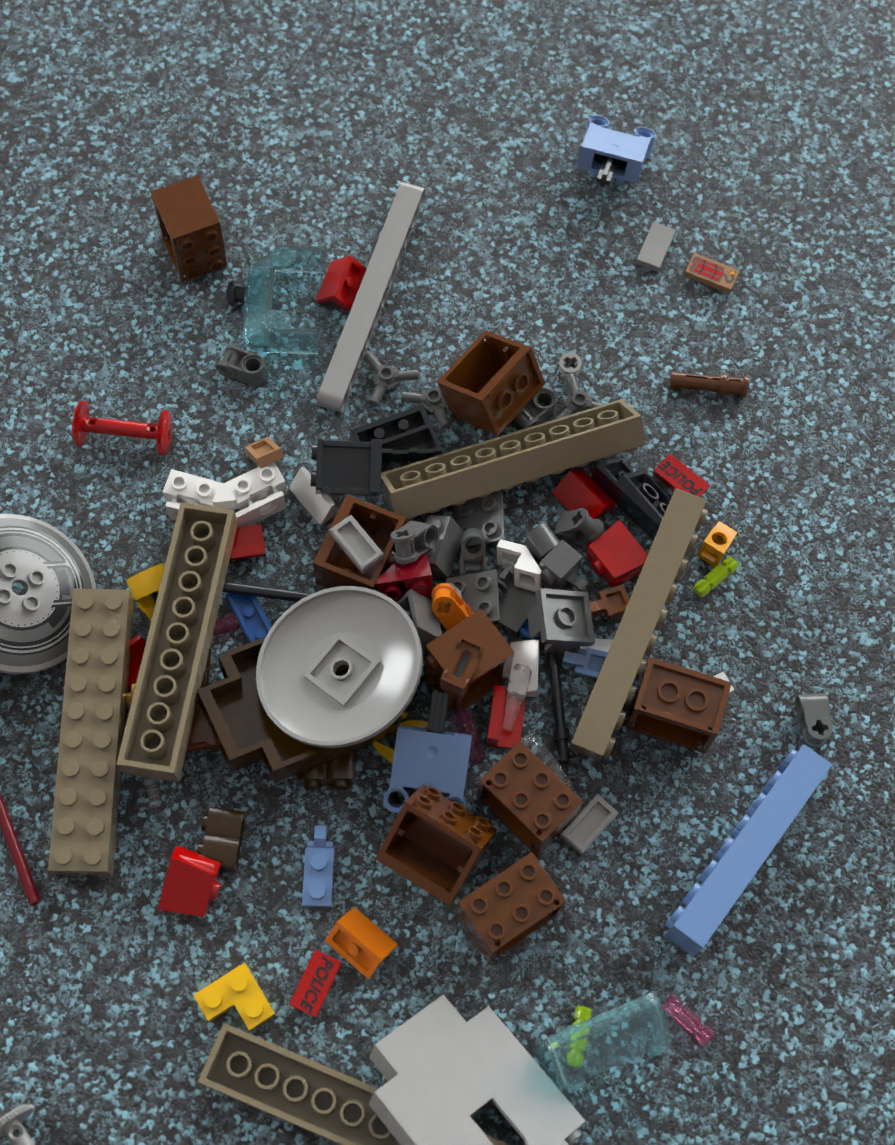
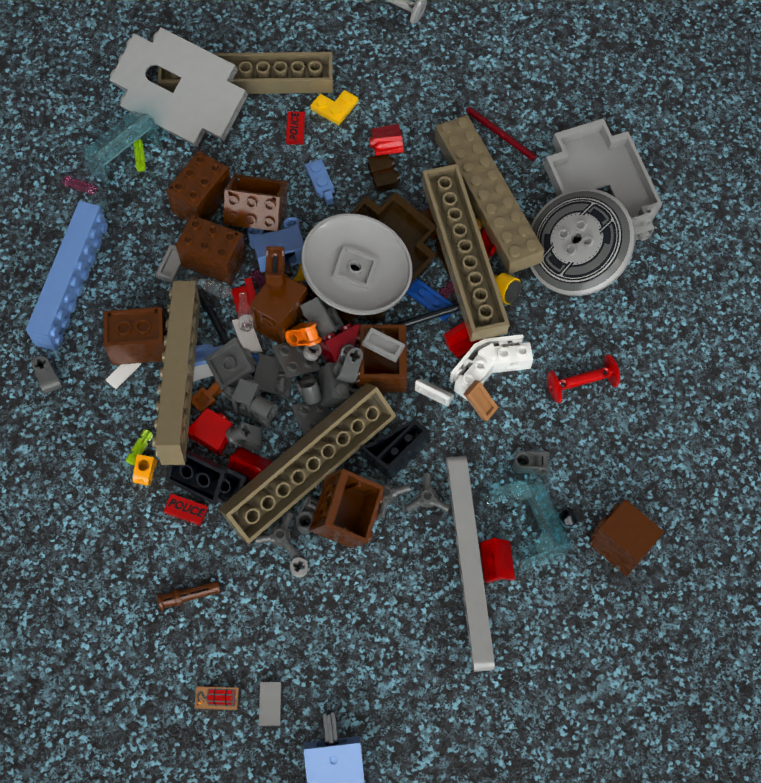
camera: 160 degrees right, 0 degrees up
(347, 467) = (417, 403): black panel -> none
(360, 942) = (278, 155): orange panel -> none
(526, 570) = (268, 389): white slope -> none

